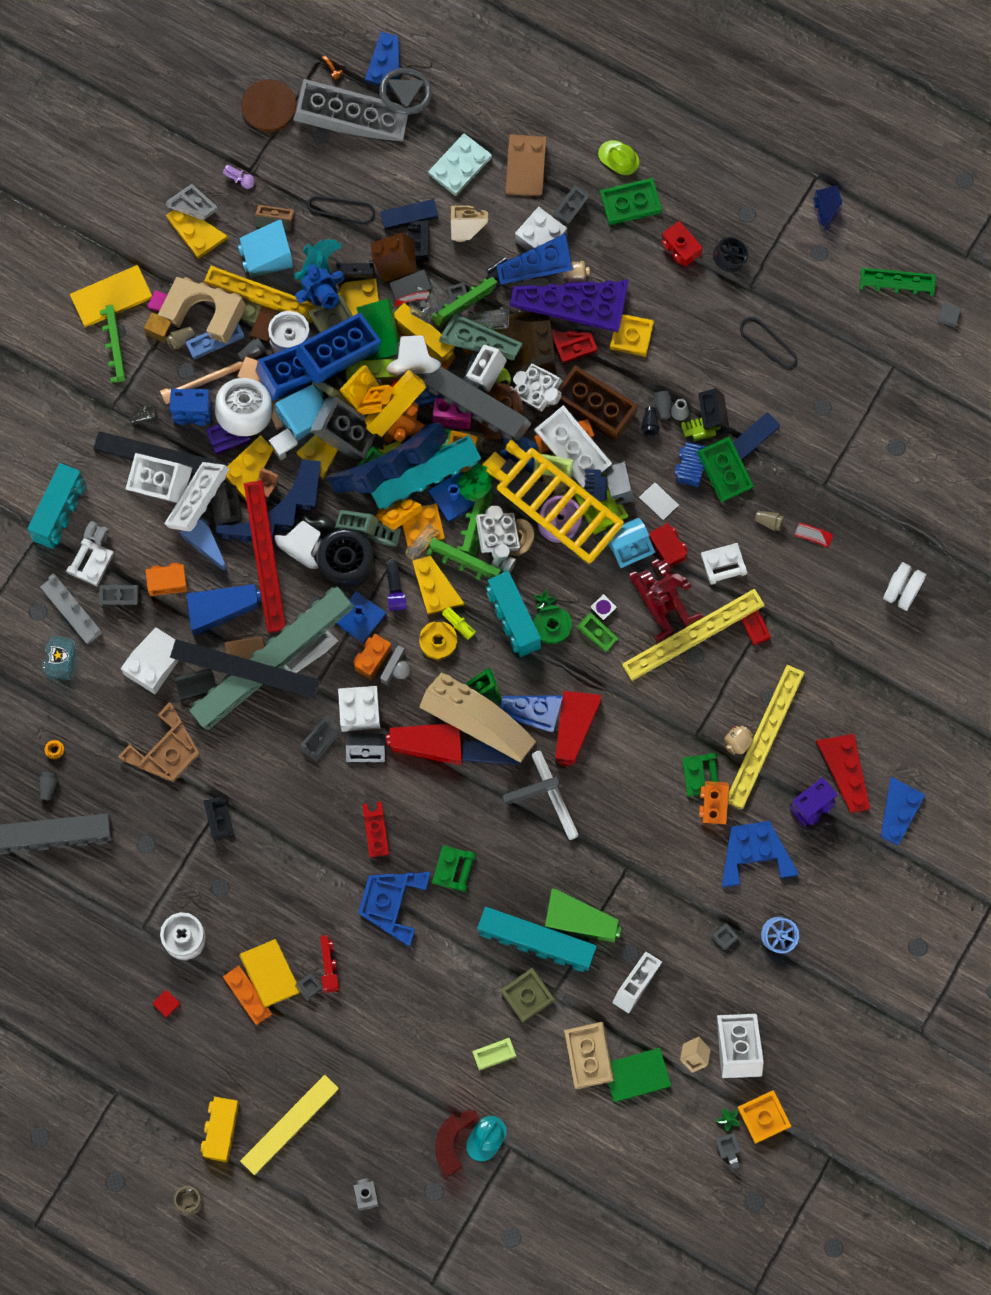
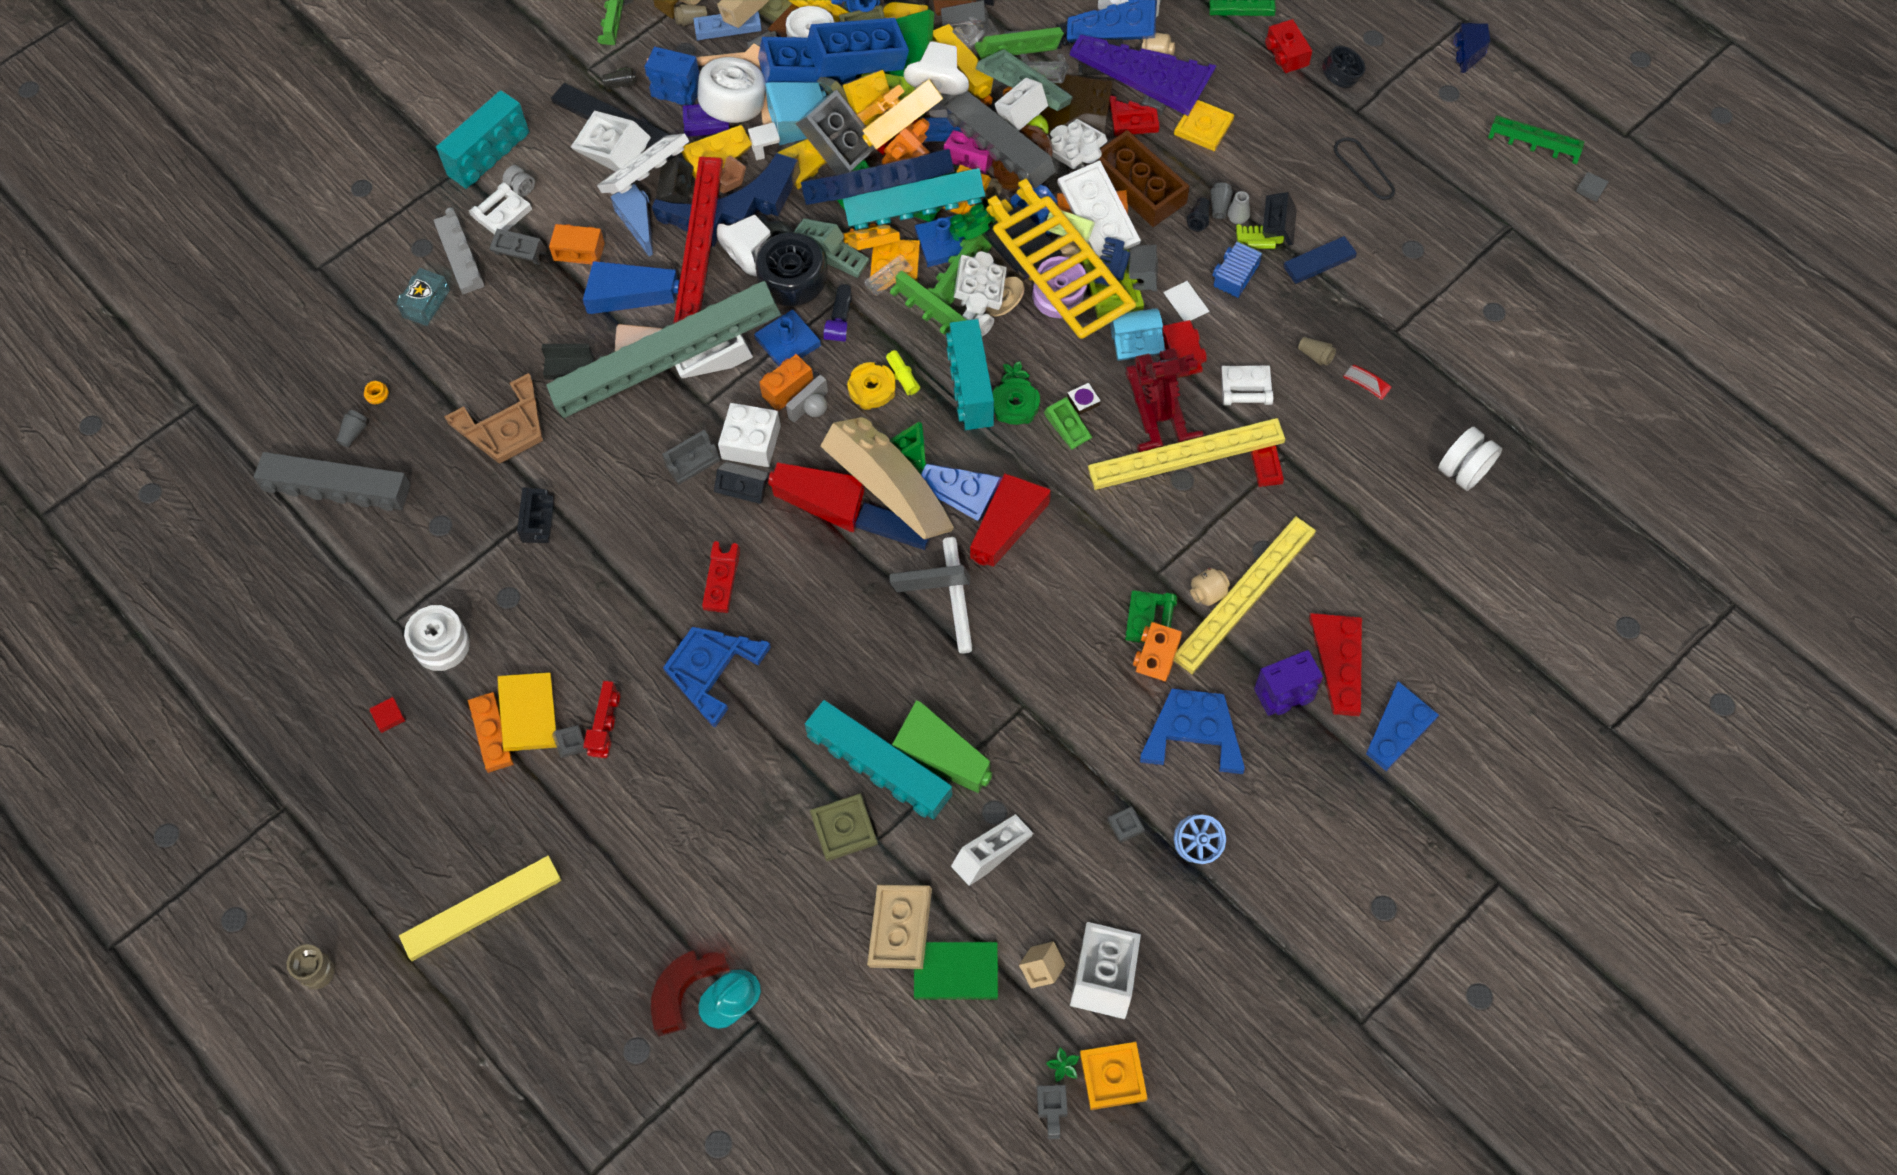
camera: 15 degrees right, 10 degrees down
(151, 661) = (527, 325): white slope -> none
(220, 1129) = (389, 887): yellow brick -> none
(245, 668) = (627, 350): black tile -> none
(369, 1201) = (548, 1034): light grey brick -> none
(435, 587) = (888, 328): yellow wing -> none
(448, 865) = (796, 643): green plate -> none
(494, 1054) = (776, 891): yellowish green tile -> none
(725, 469) = (1276, 281): green tile -> none

